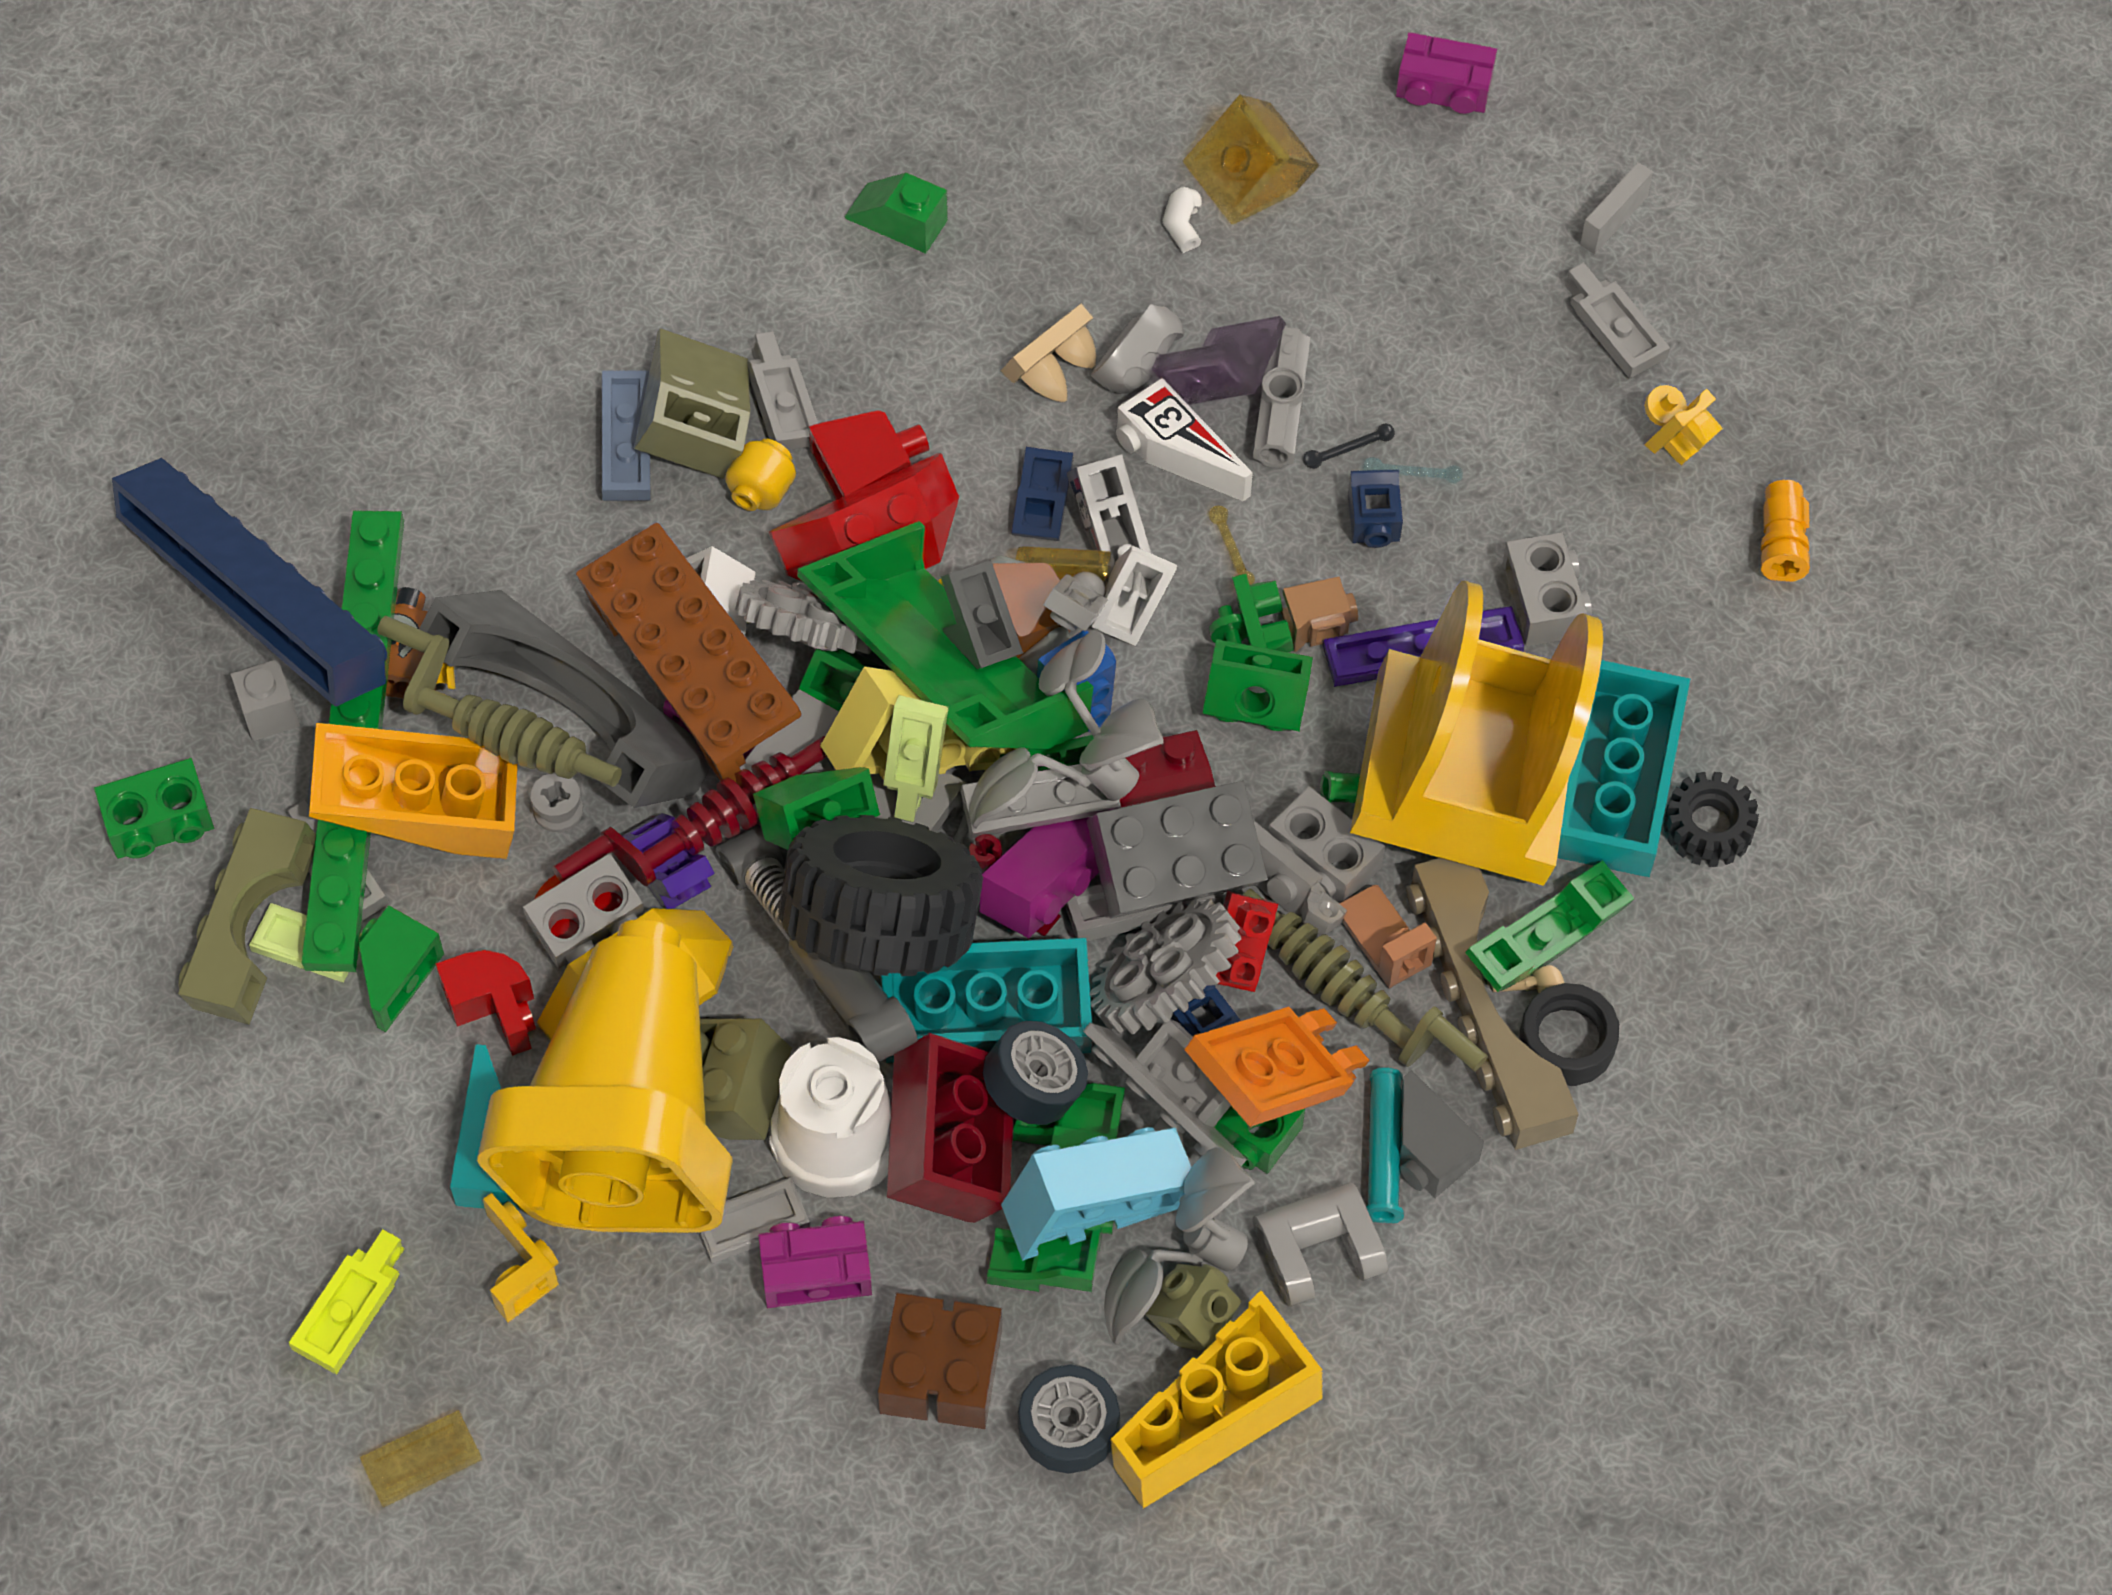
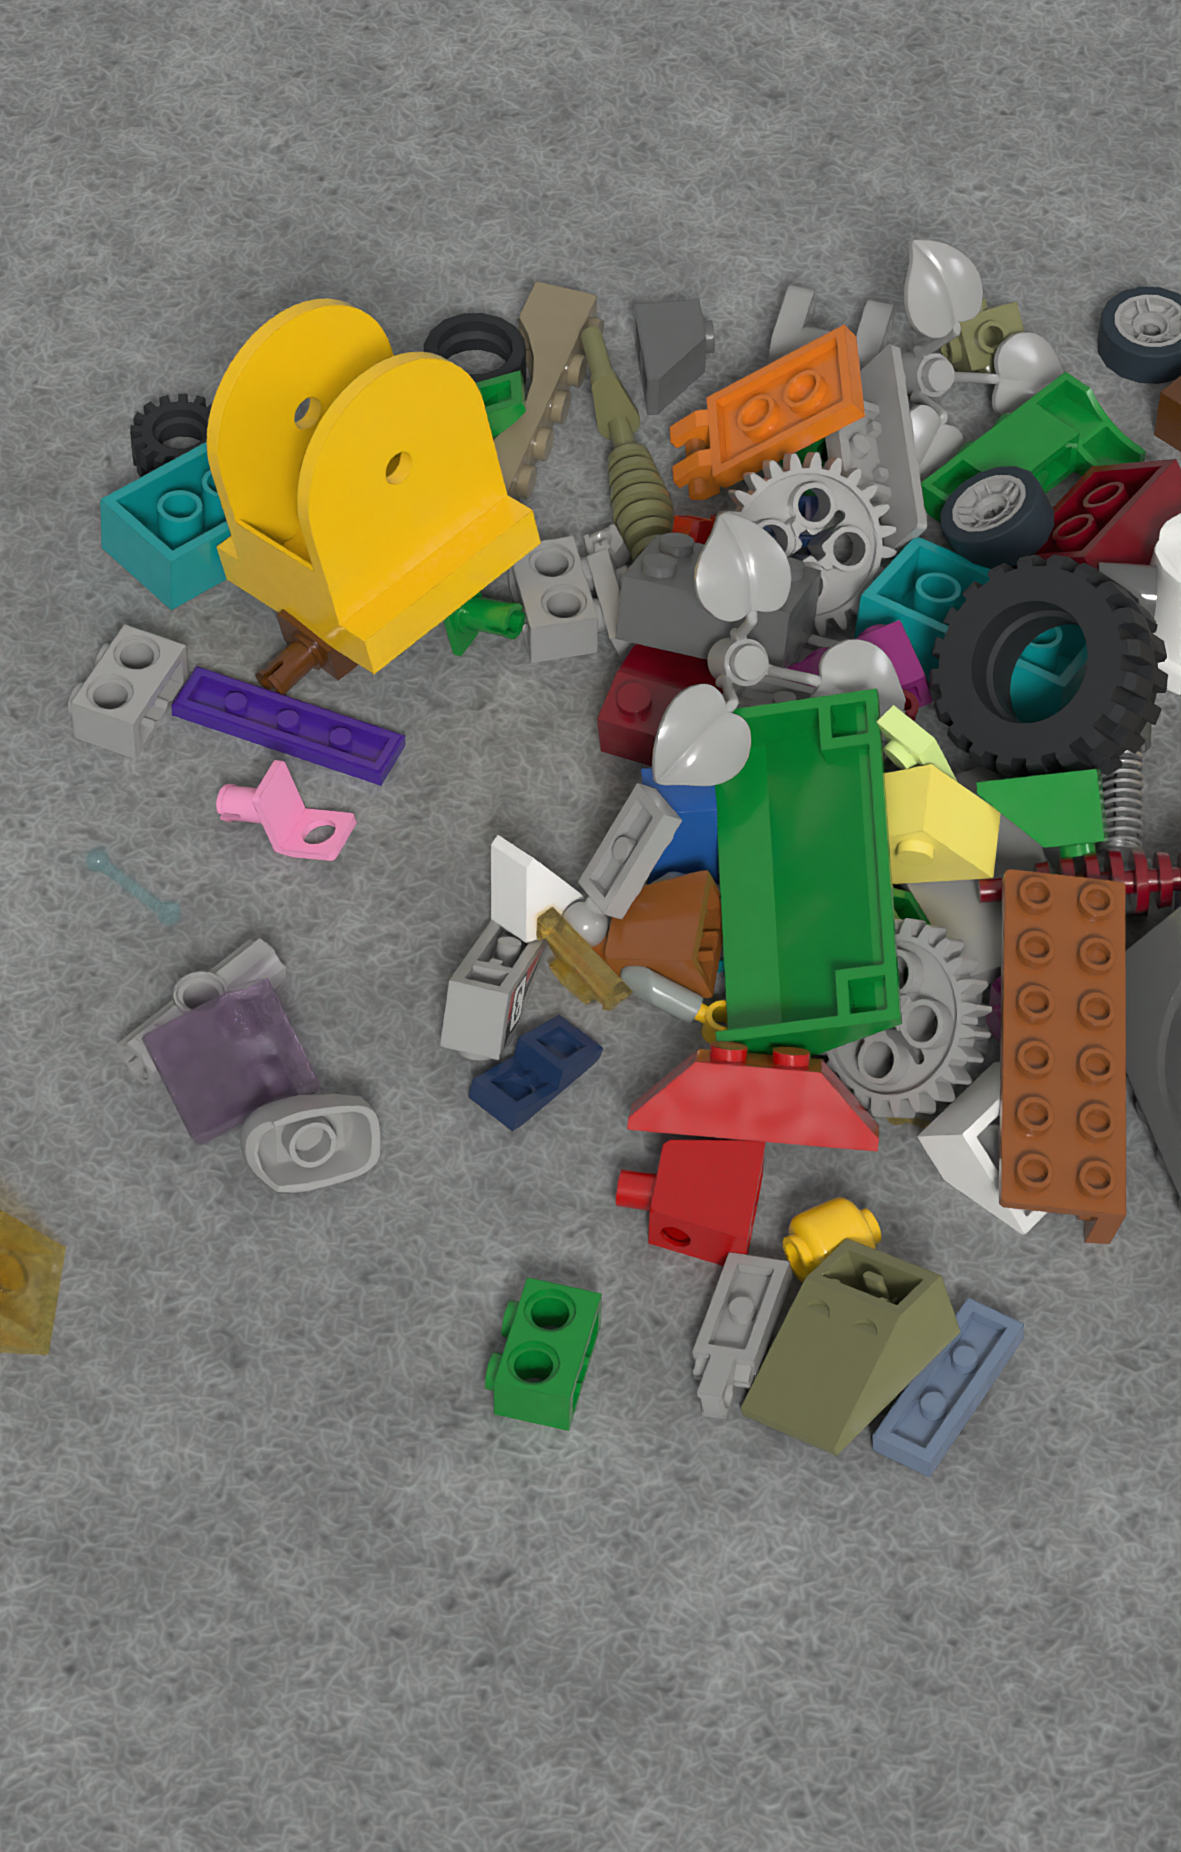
camera: 145 degrees left, 10 degrees down
(880, 311) = (554, 1355): none -> green brick
(902, 210) = (431, 1463): green slope -> none
(982, 618) = (739, 903): dark grey slope -> none
(1039, 366) = (399, 1207): tan tile -> none
(1095, 1184) = (1021, 389): medium azure wedge -> none
(1177, 216) = (116, 1281): white arm -> none
(1179, 441) = (354, 1029): white slope -> none
(1218, 1404) = (1043, 259): yellow wedge -> none
(1219, 516) = (370, 955): clear yellow hinge -> none
(1253, 602) = (447, 817): green hips -> none
(1278, 672) = (494, 744): green brick -> none
(1314, 459) = (124, 937): black hinge -> none
(1318, 611) = (370, 788): medium nougat window -> none
(1360, 560) = (284, 816): none -> bright pink bracket
(1375, 526) = (224, 864): dark blue window -> none
(1384, 1146) = (713, 372): teal pin -> none
(1386, 938) = (565, 488): nougat bracket -> none

